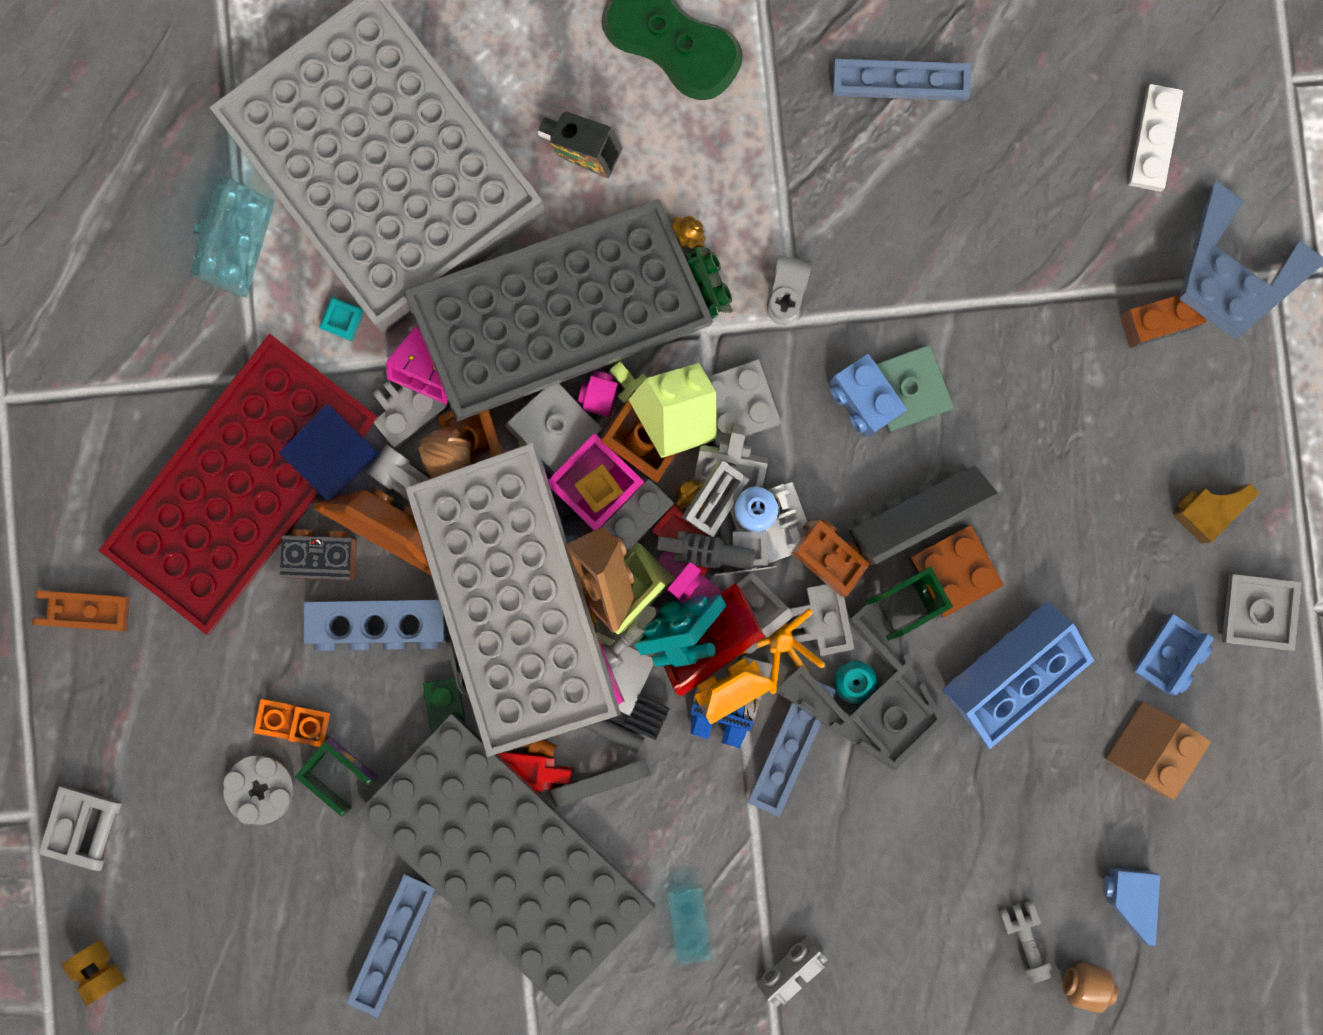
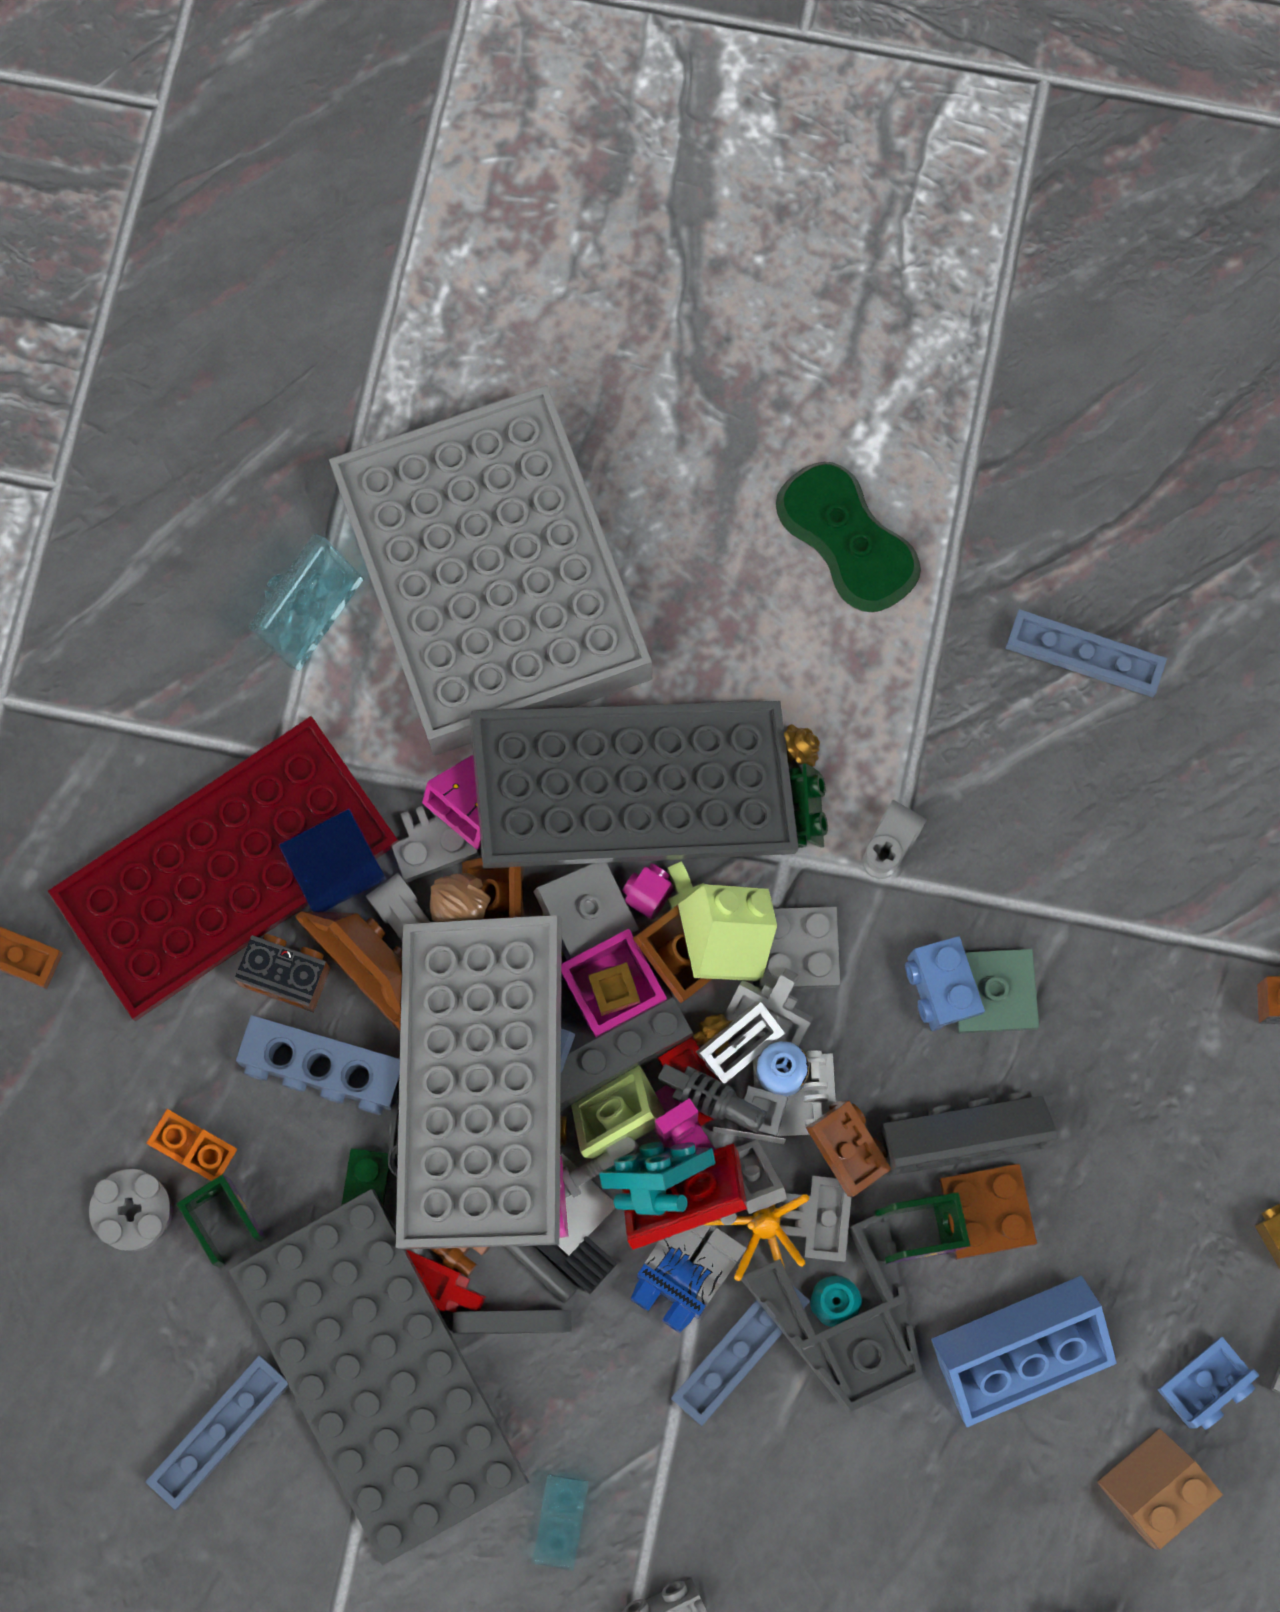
camera: 20 degrees right, 10 degrees down
(342, 319) = (394, 725): teal tile -> none
(583, 142) = (716, 616): pearl dark grey torso -> none
(603, 575) = (589, 1084): medium nougat slope -> none
(733, 691) = (691, 1256): light orange slope -> none

